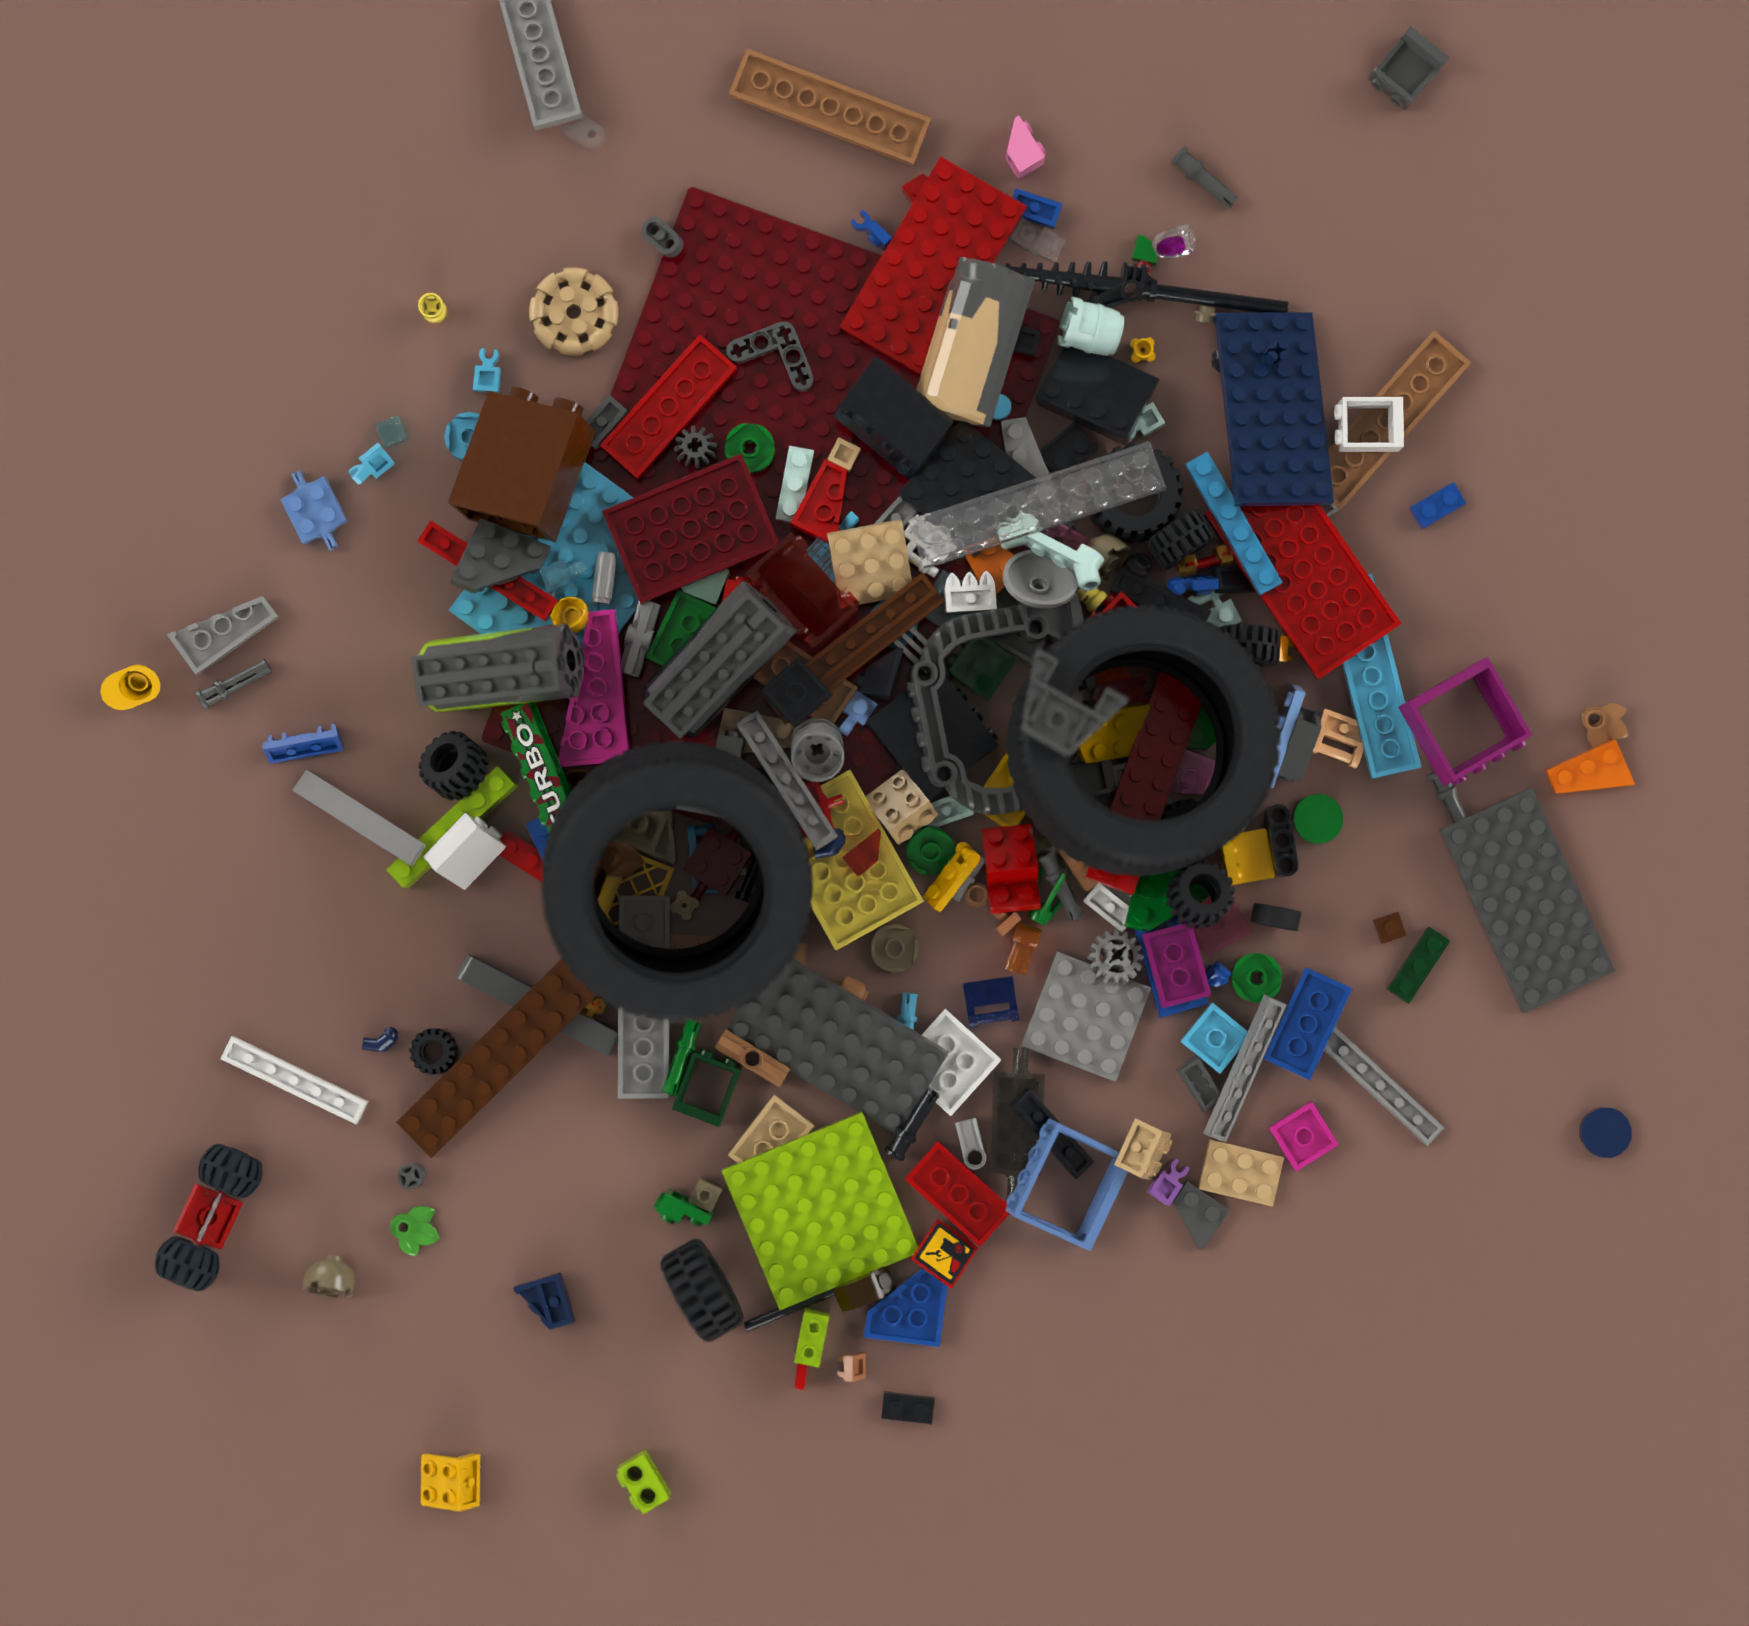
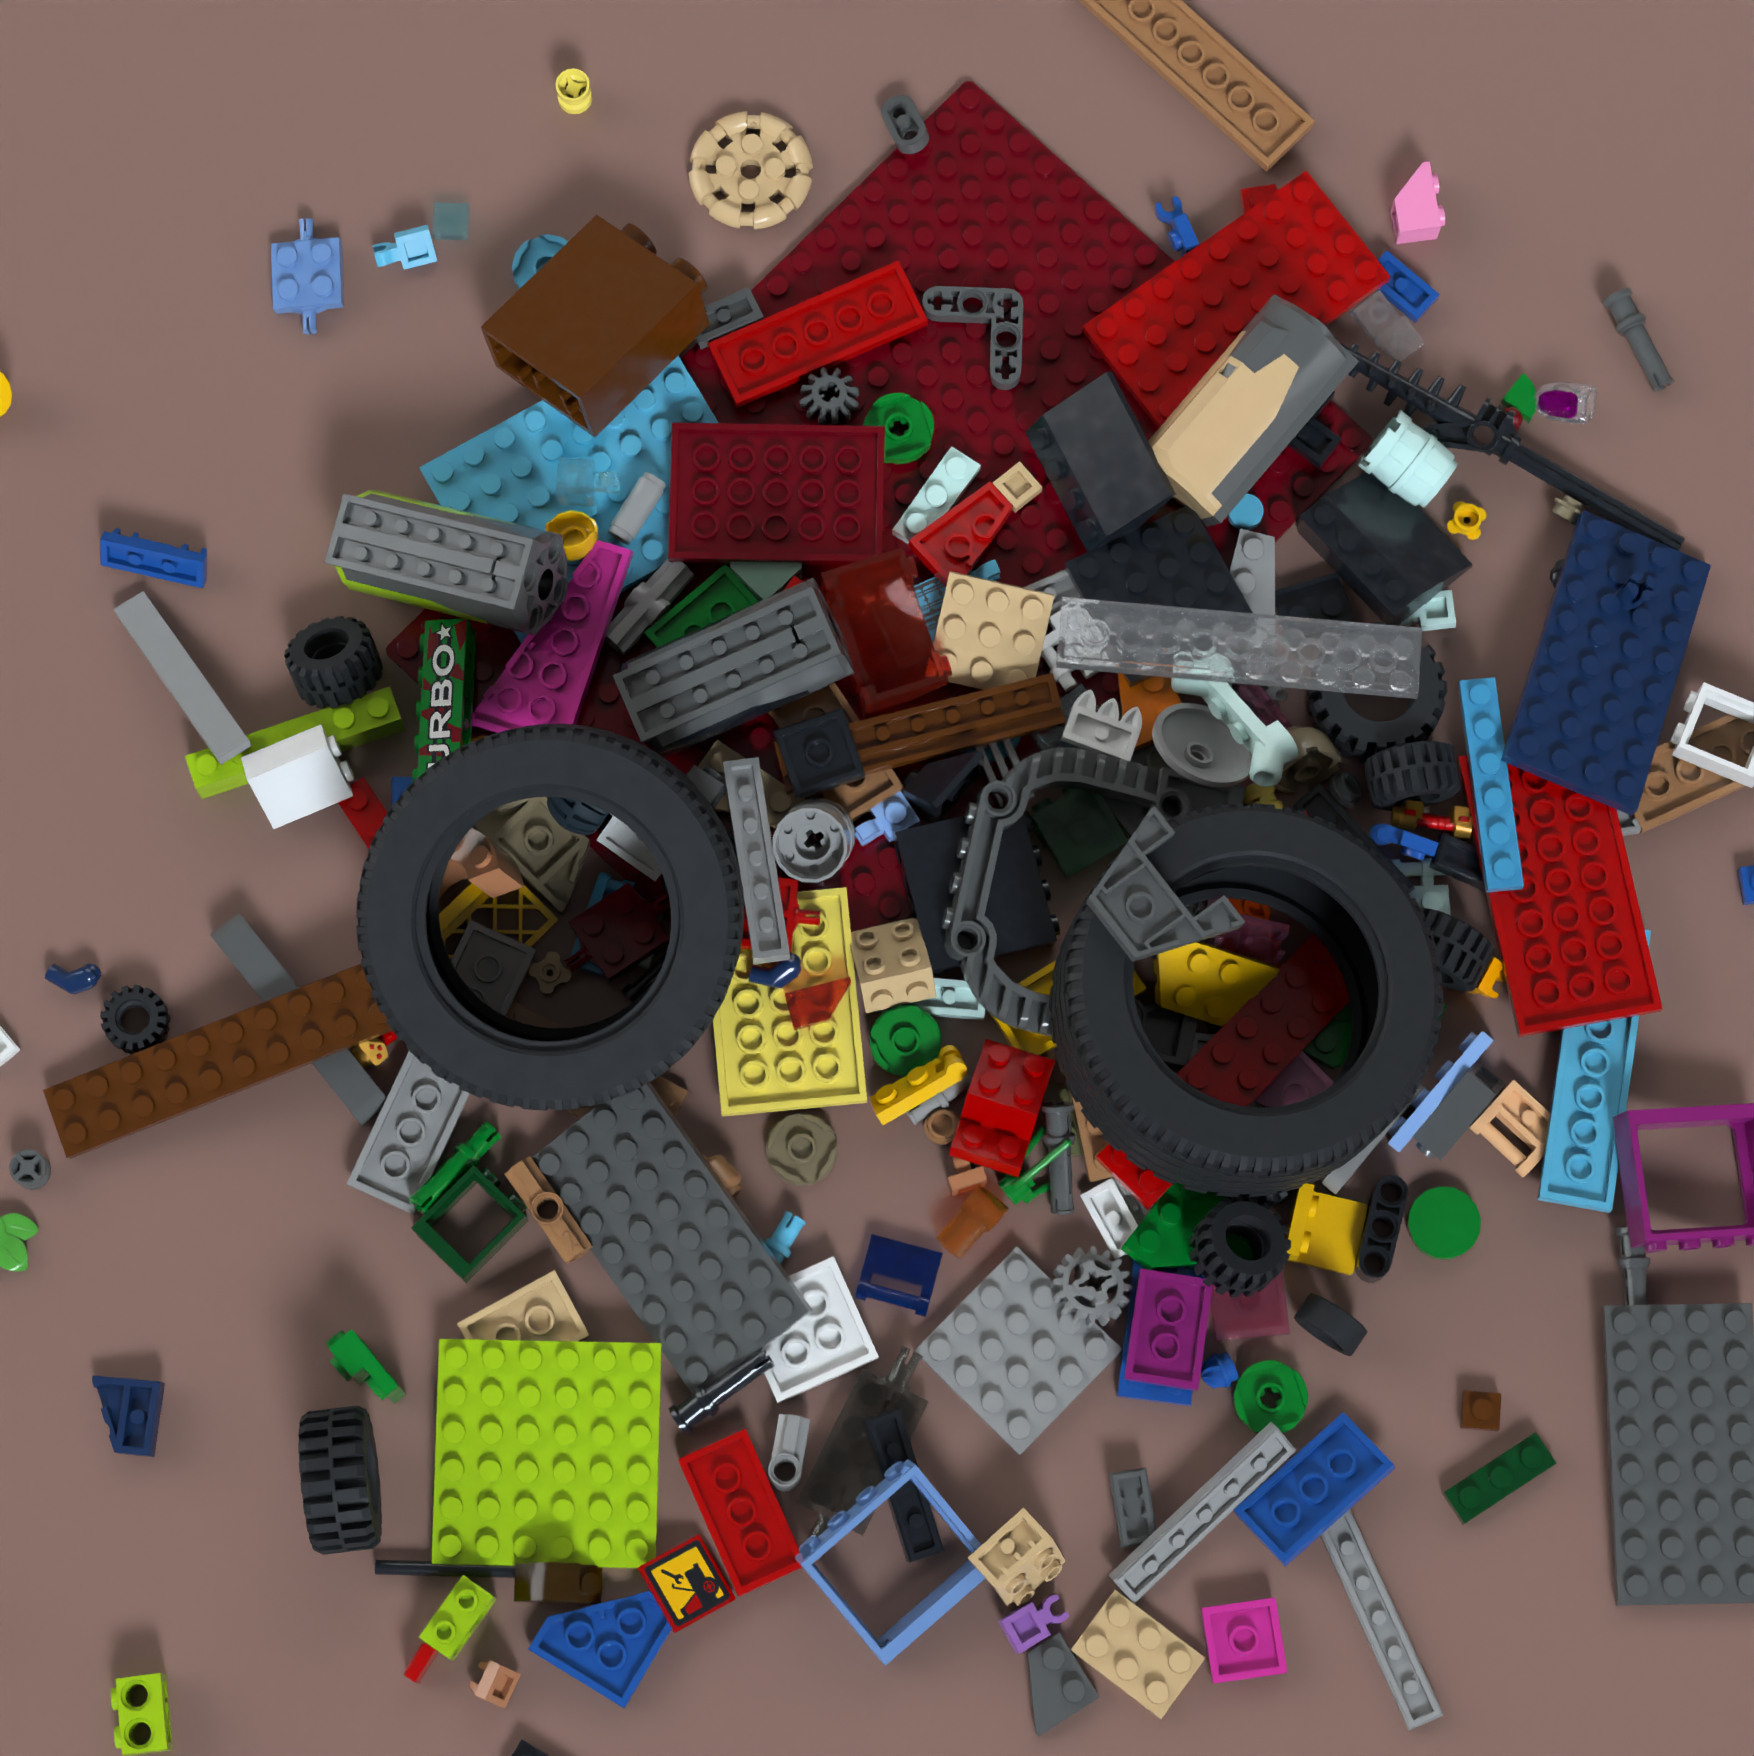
camera: 25 degrees right, 10 degrees down
(214, 638) = (103, 380): light grey wing -> none
(223, 689) = (147, 443): dark grey pin -> none
(487, 376) = (606, 199): medium azure plate -> none
(497, 557) = (513, 423): dark grey plate -> none
(519, 591) = (492, 436): red plate -> none
(706, 1194) = (404, 1362): dark tan brick -> none
(1215, 1038) = (1179, 1454): medium azure plate -> none

